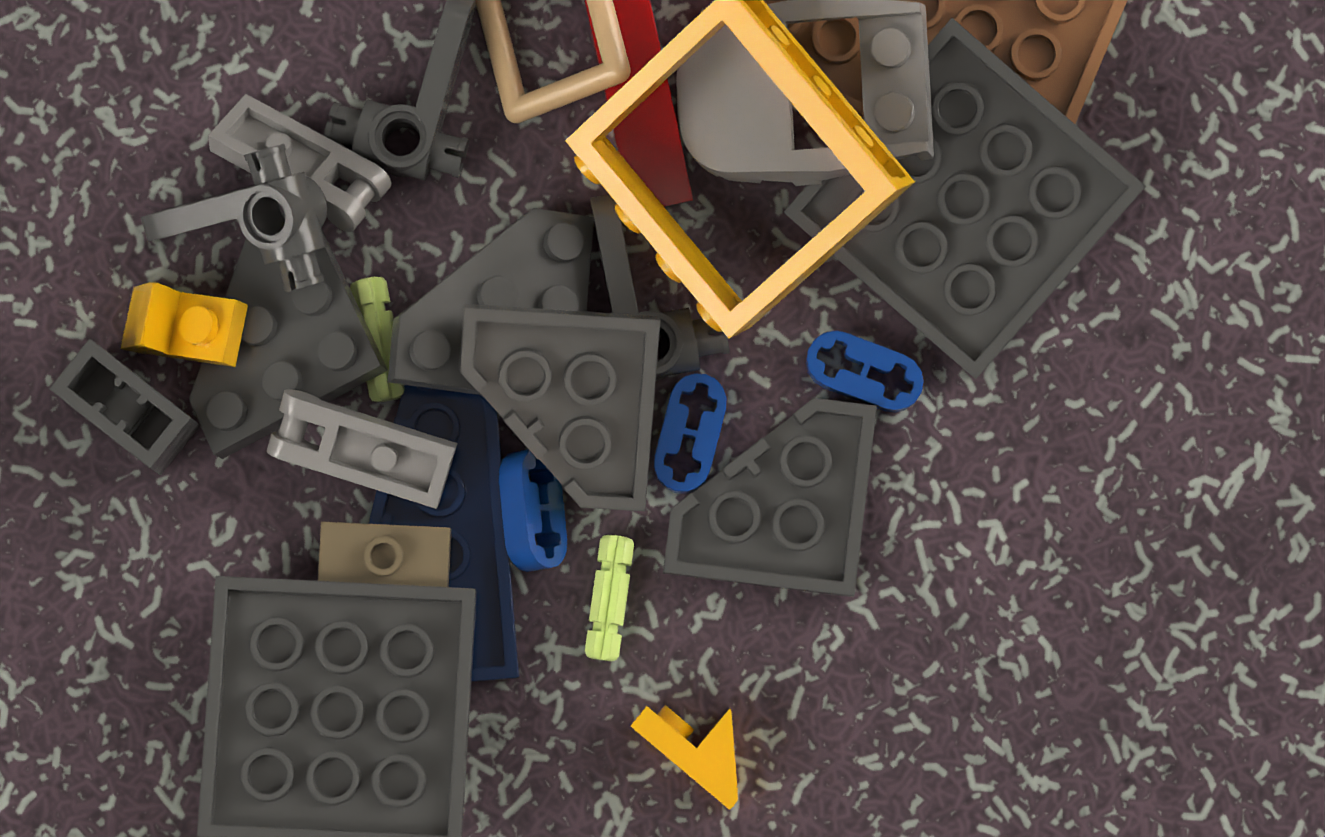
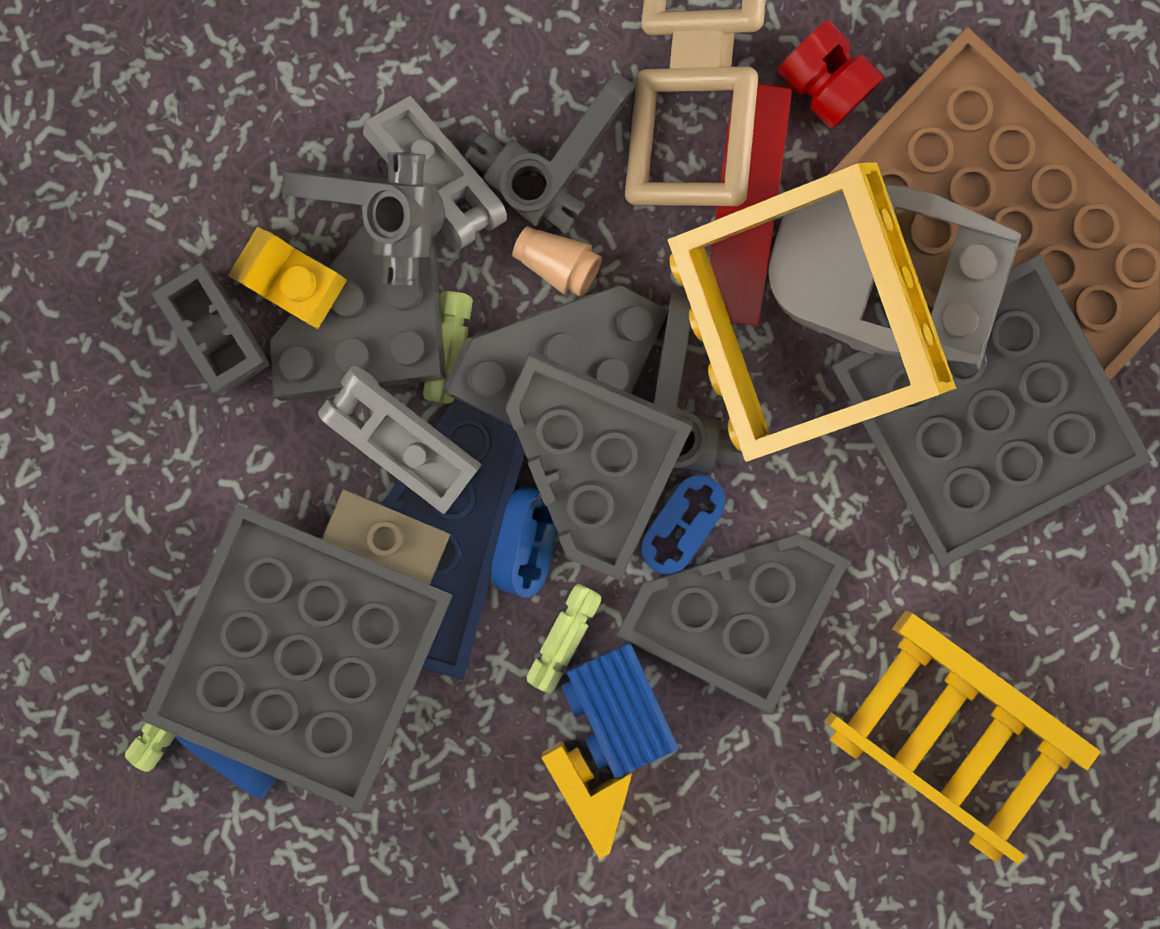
camera: 25 degrees right, 5 degrees up
(461, 207) = (558, 260): none -> light nougat cone
(694, 648) = (620, 710): none -> blue brick
(870, 357) = (859, 515): blue beam -> none
(1104, 503) = (1011, 716): none -> yellow fence

